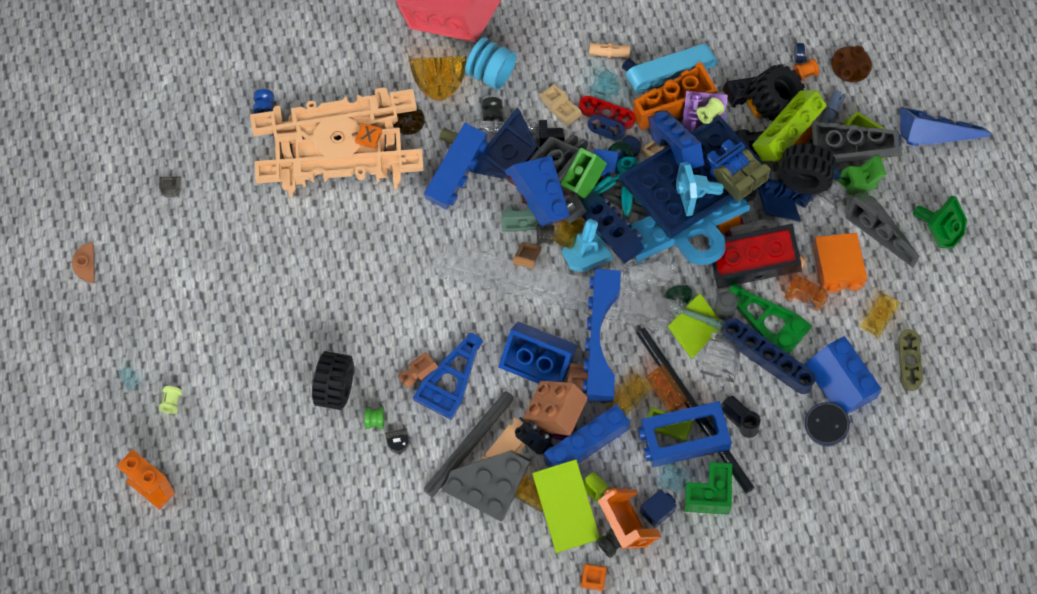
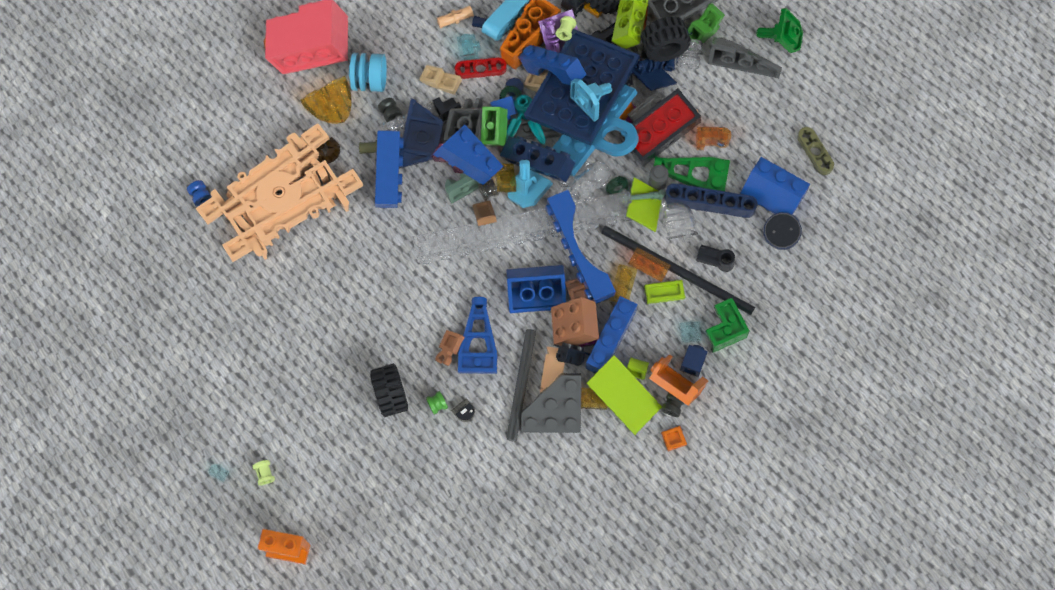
camera: 25 degrees left, 5 degrees up
(84, 263) = (125, 398): nougat plate -> none
(170, 186) = (160, 299): clear smoke tile -> none
(368, 135) = (304, 178): orange tile -> none
(575, 207) = (502, 156): dark grey tile -> none
(605, 131) = (488, 75): dark blue beam -> none
(696, 448) = (672, 320): blue piece -> none
(737, 169) = (613, 65): hips -> none
(839, 262) = (724, 101): orange brick -> none
(880, 315) = (775, 127): clear yellow plate -> none

